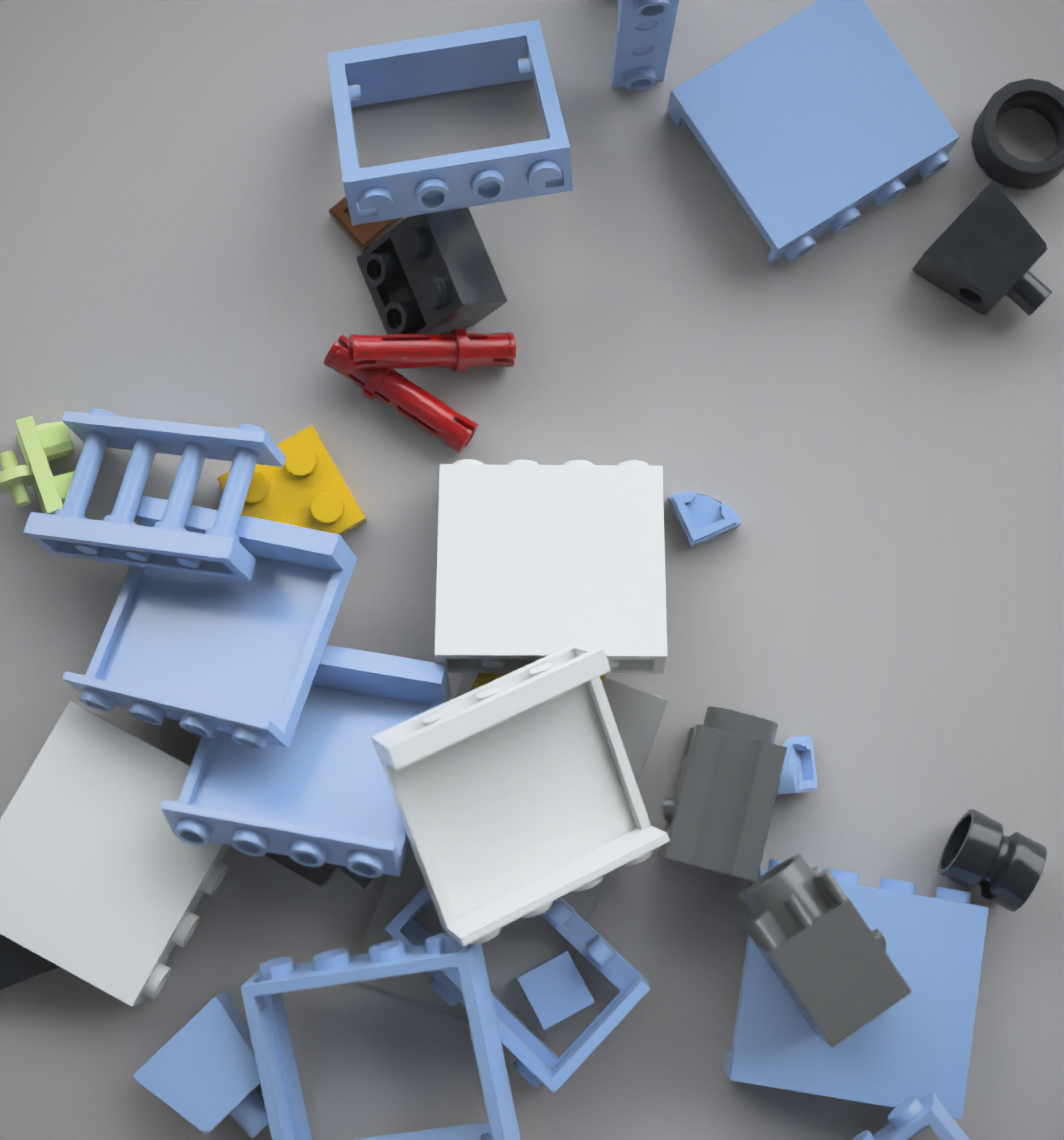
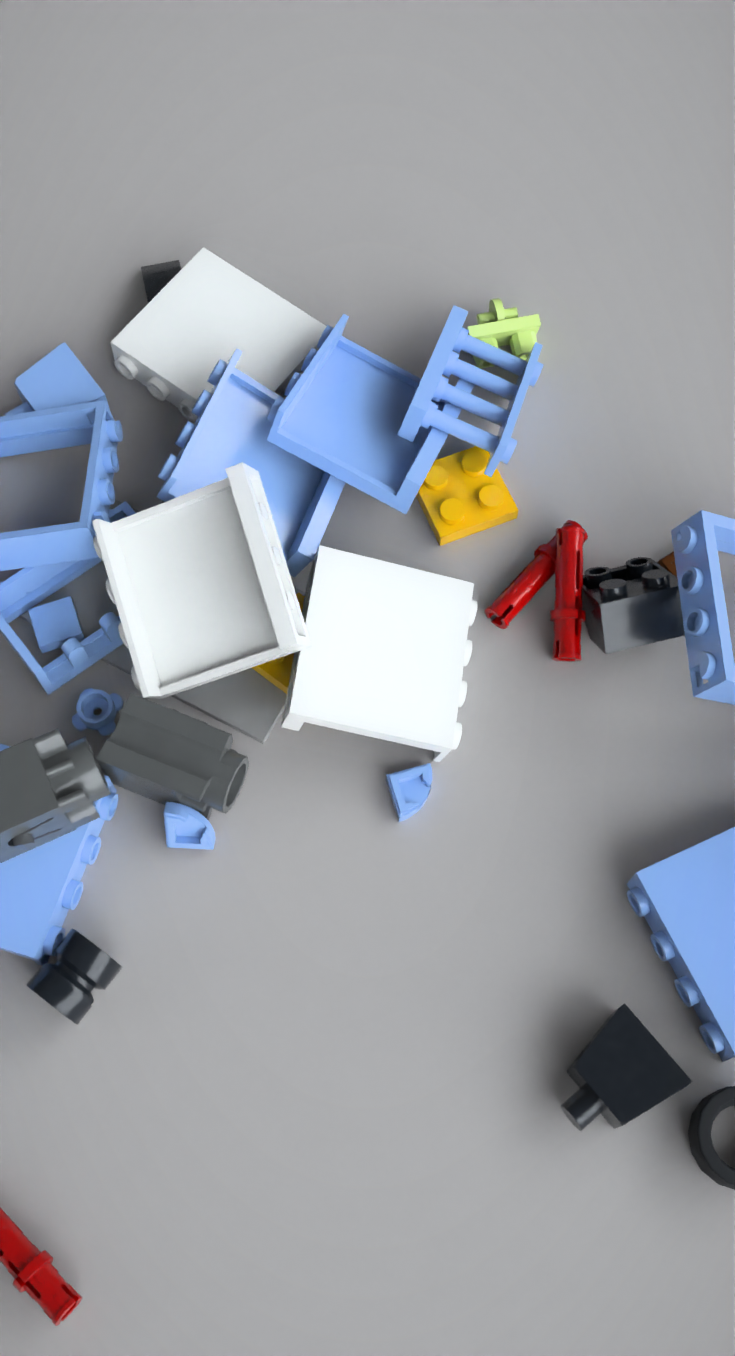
camera: 100 degrees right, 15 degrees down
(671, 924) = (90, 701): none -> light blue plate

